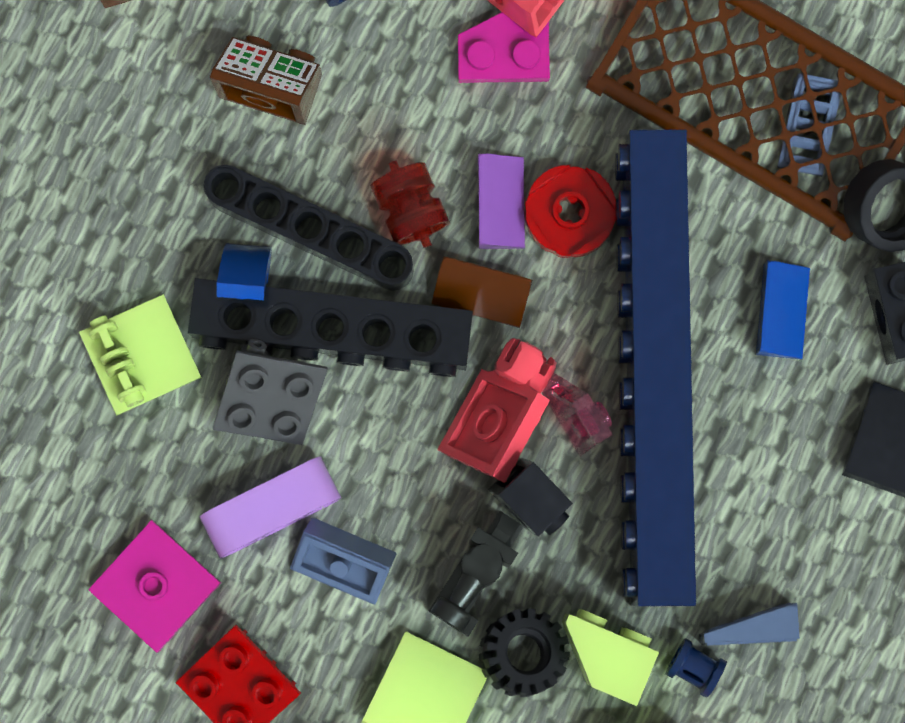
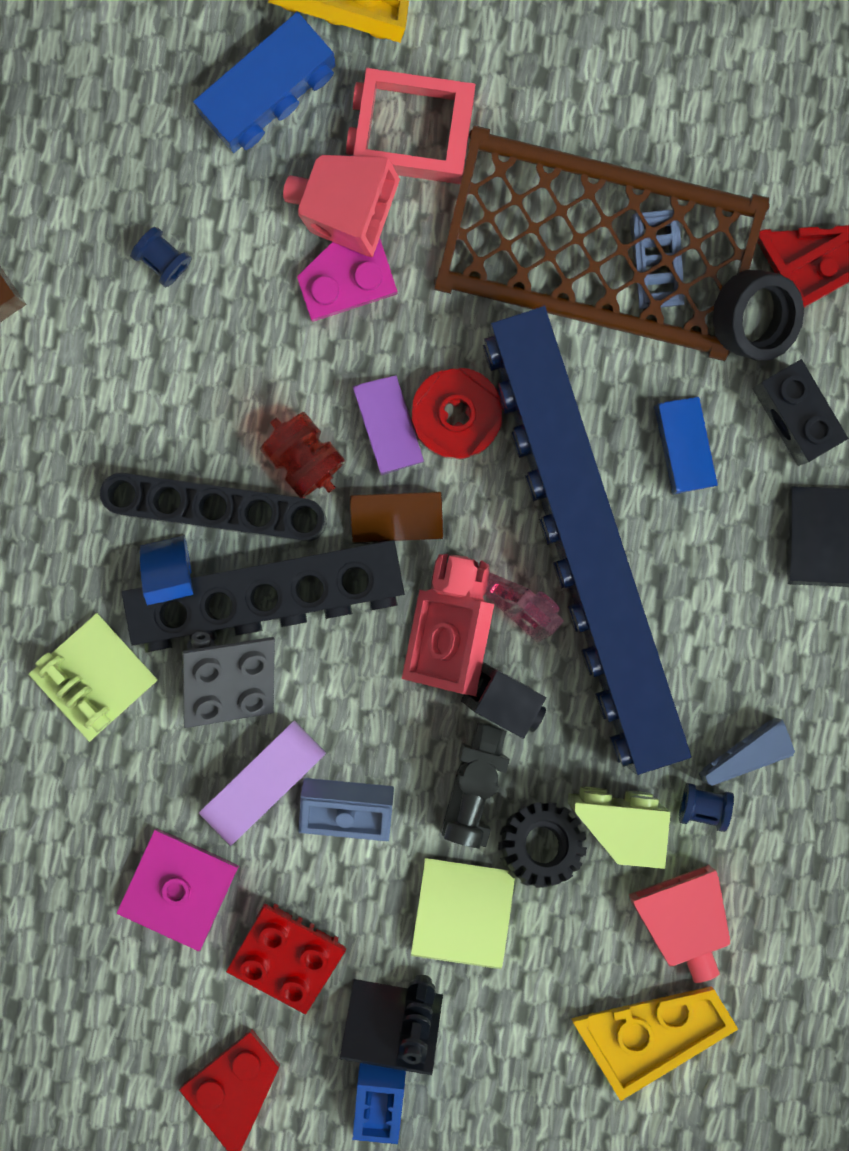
camera: 20 degrees left, 5 degrees up
(267, 79) = (128, 376): reddish brown slope -> none

